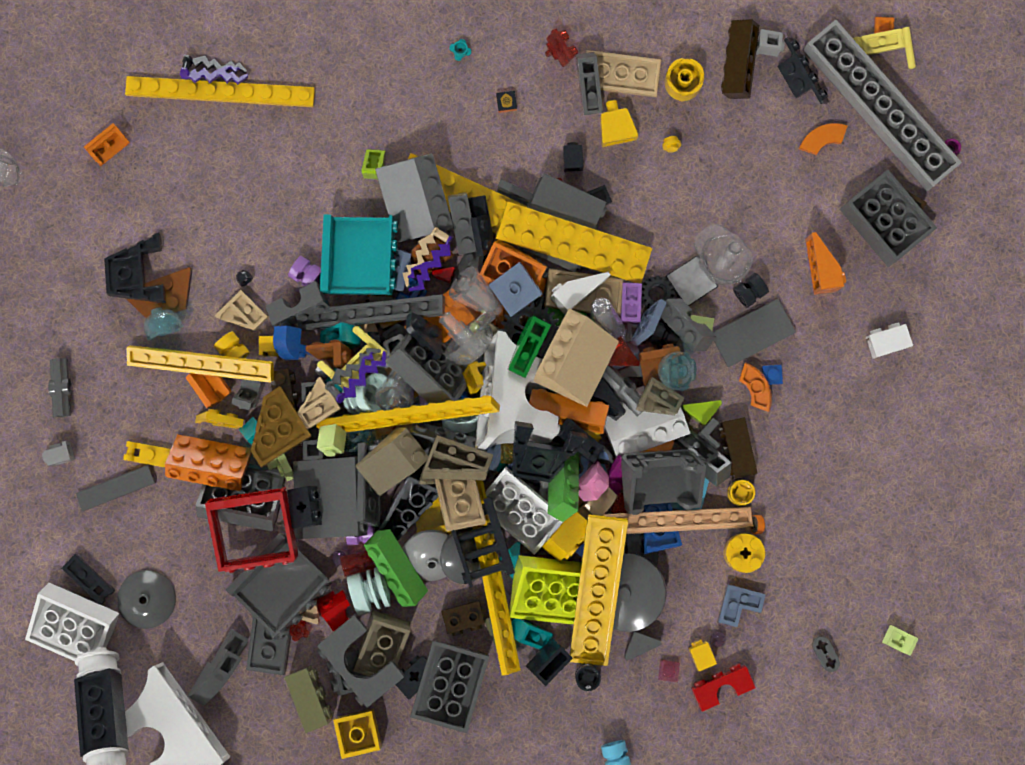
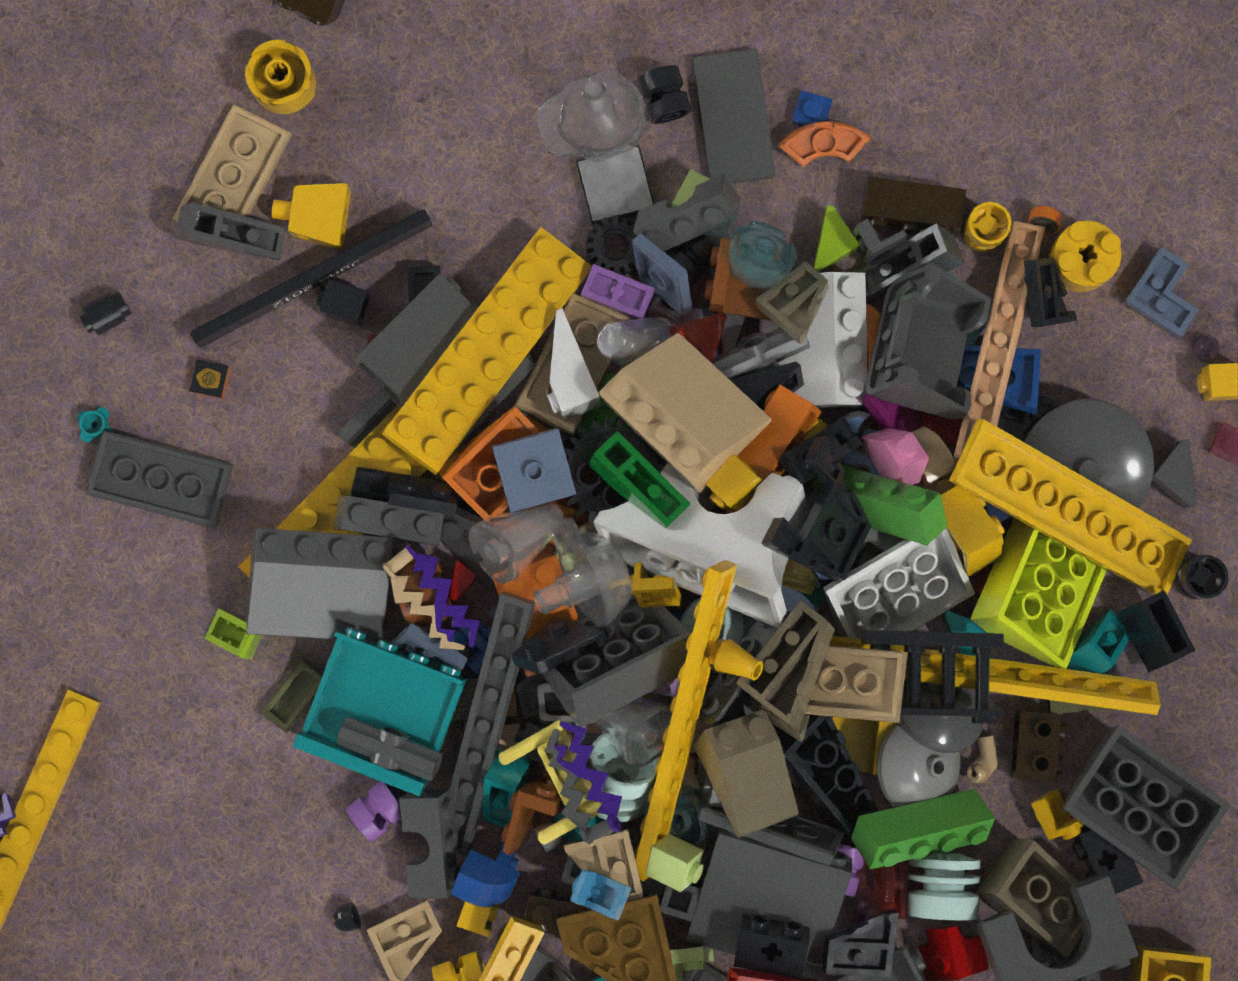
camera: 70 degrees left, 0 degrees up
(301, 404) = (600, 893): none -> dark azure bracket
(320, 557) = (862, 947): none -> black wing
(340, 266) = (389, 748): none -> dark grey piece
(351, 207) = (293, 696): none -> olive tile
(425, 640) = (1053, 818): none -> yellow bracket
(442, 94) = (159, 479): none -> dark grey tile
(445, 593) = (985, 763): none -> tan arm
(448, 429) = (733, 659): none -> yellow cone
(522, 33) = (105, 313): none -> black brick
(545, 398) = (734, 484): none -> yellow brick
(558, 48) = (153, 261): clear red hips -> none
(580, 136) = (311, 278): none -> black tile
(671, 144) = (379, 136): yellow plate -> none
(714, 537) = (1045, 293): none -> black wing

